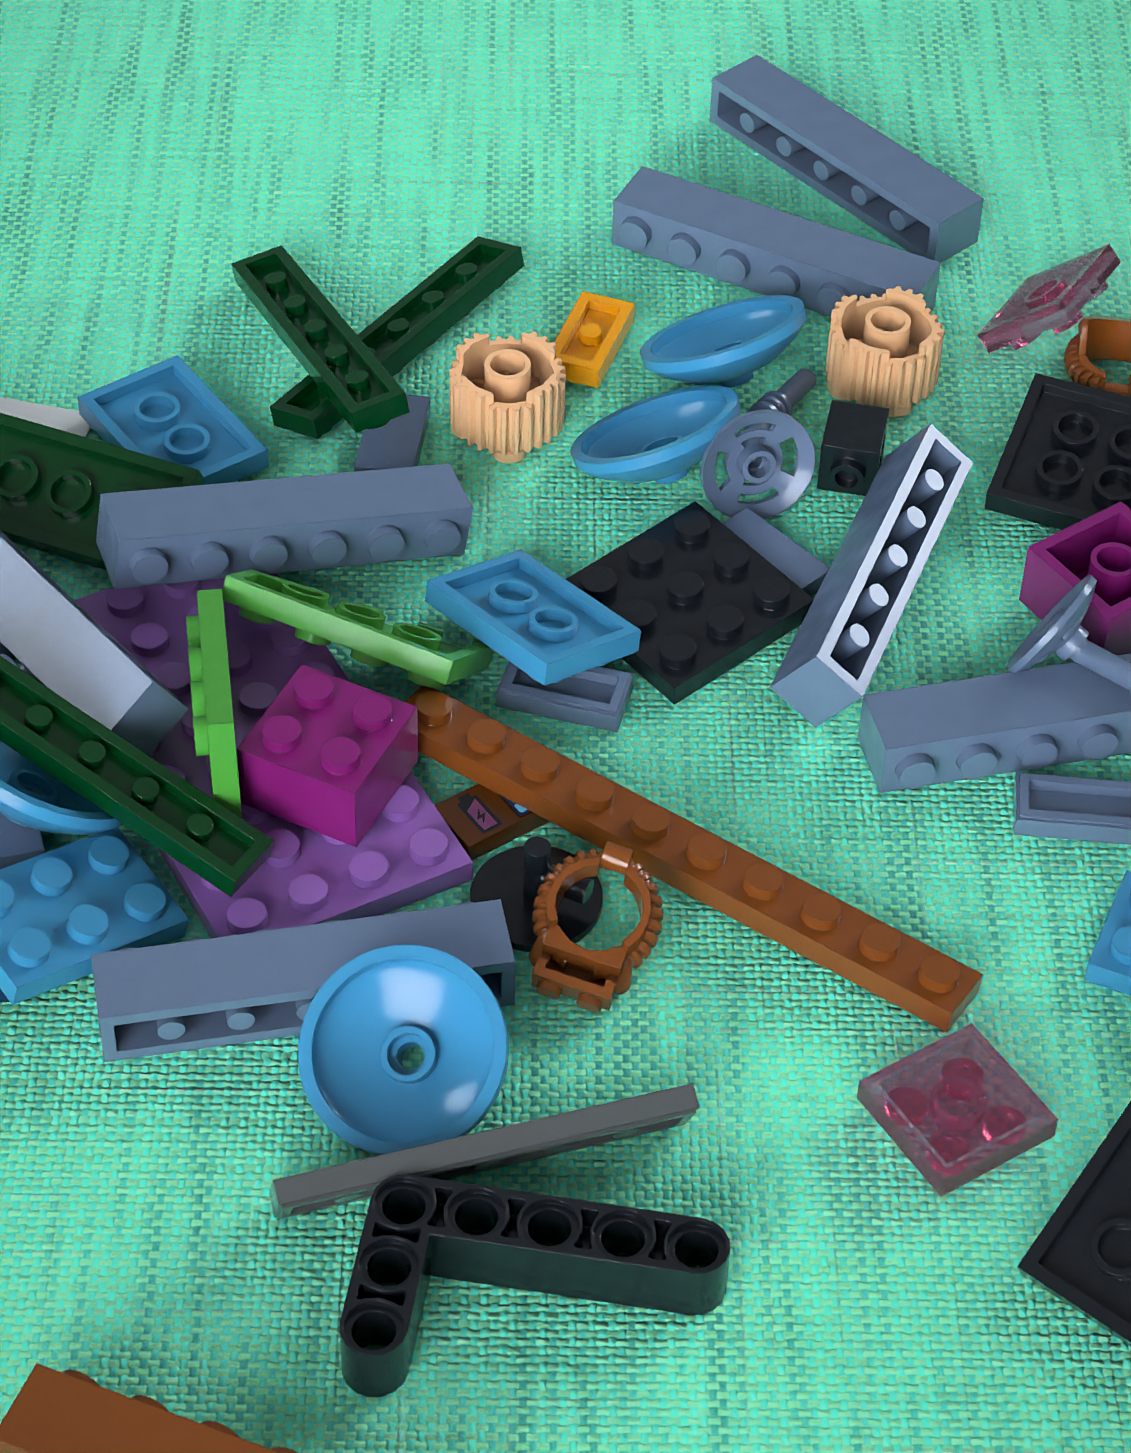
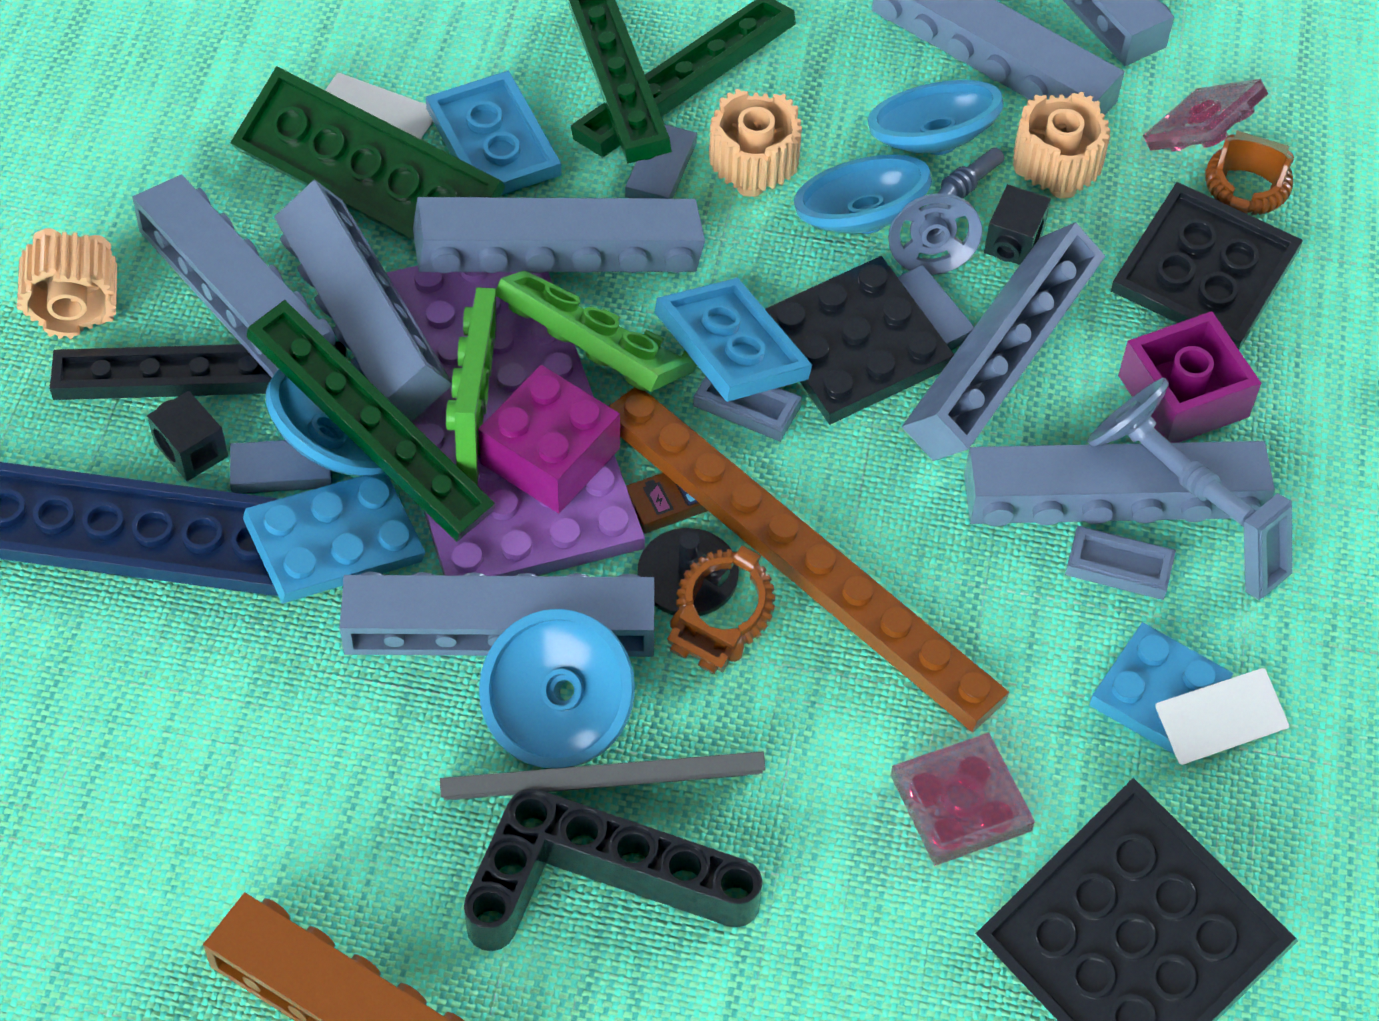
camera: 10 degrees right, 10 degrees up
(593, 337) = (834, 97): light orange plate -> none

